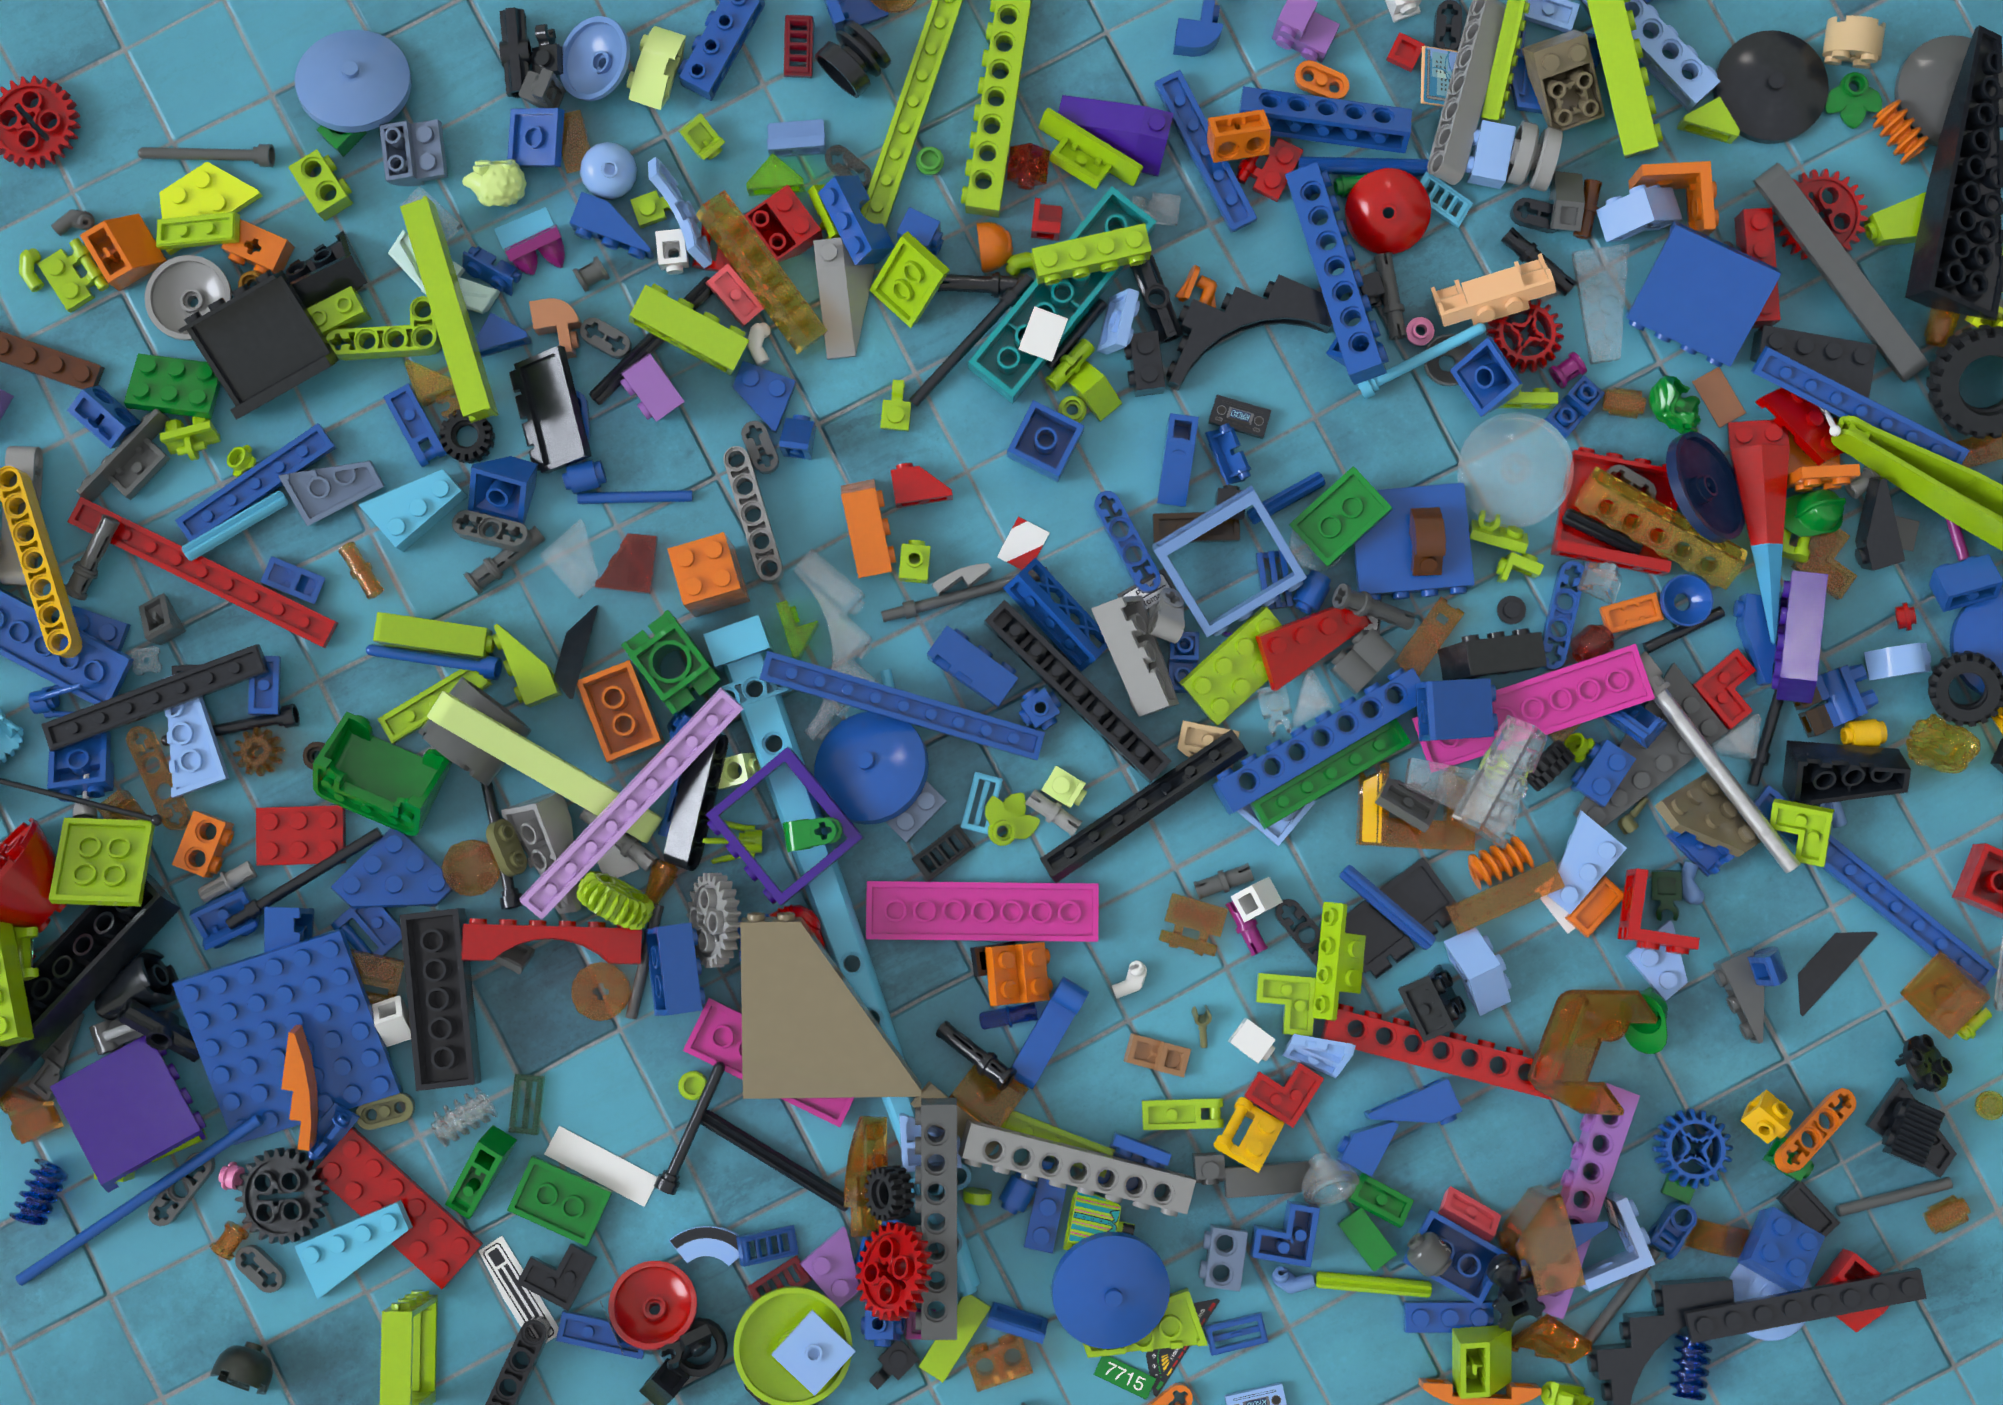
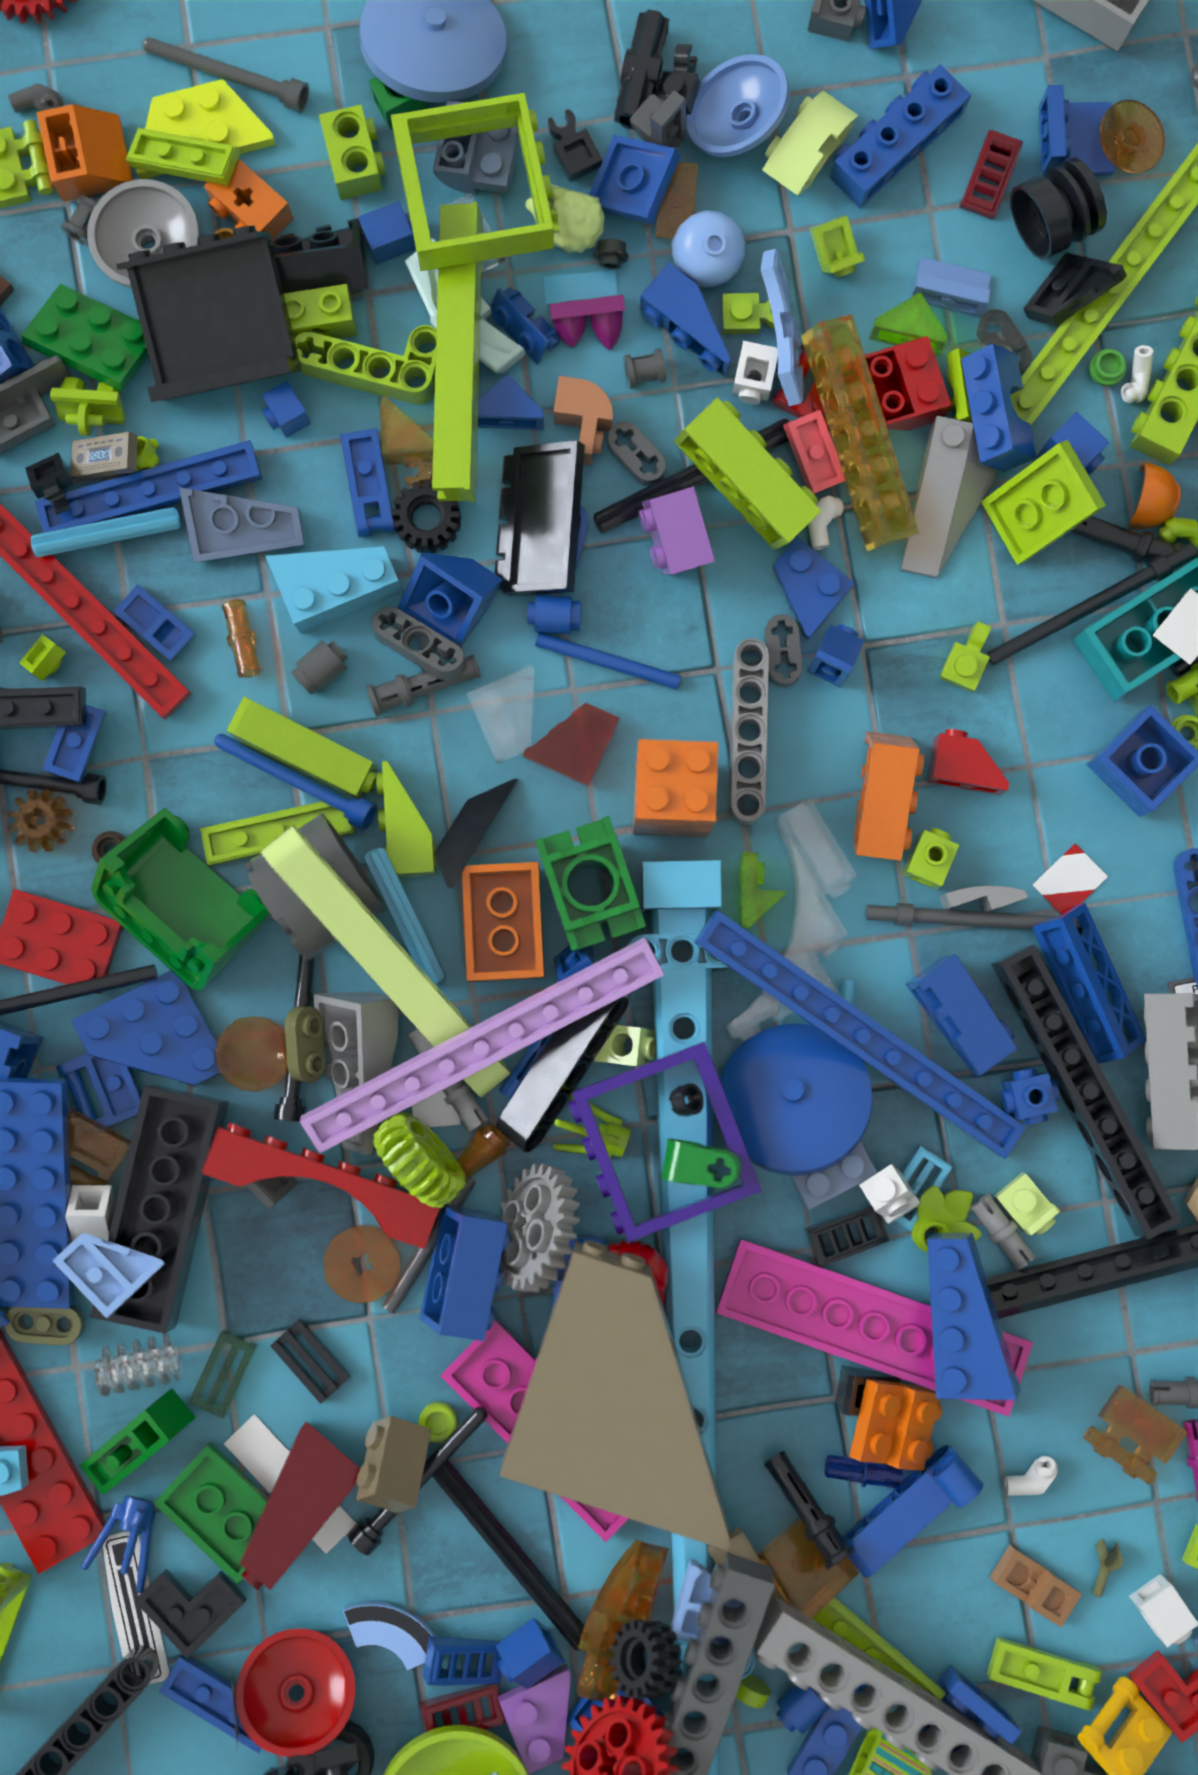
camera: 20 degrees right, 0 degrees up
(137, 301) = (74, 227): none -> dark grey bush
(179, 501) = (48, 479): none -> black plate
(214, 470) = (104, 456): none -> dark tan tile
(220, 633) = (43, 658): none -> lime plate
(336, 392) = (285, 410): none -> blue plate
(369, 235) = (387, 232): none -> blue brick
(392, 142) = (465, 120): none -> lime window
(417, 1052) = (106, 1270): none -> light blue wing
(425, 571) = (320, 666): none -> dark grey brick
(485, 128) = (574, 150): none -> black plate
(499, 1225) = (135, 1516): none -> blue plant
(538, 196) = (611, 253): none -> pearl dark grey plate
(545, 729) = (403, 913): none -> medium azure axle
(579, 1082) = (294, 1365): none -> black tile
(612, 1168) = (302, 1499): none -> dark red slope
(668, 1121) = (393, 1464): none -> dark tan brick
(793, 788) = (694, 1096): none -> black hinge
(810, 1223) = (529, 1654): none -> blue brick
(882, 112) = (1072, 287): none -> black wing
(955, 157) = (1140, 375): none -> white arm
(960, 811) = (890, 1194): none -> white brick
(1040, 883) = (967, 1336): none -> blue wedge

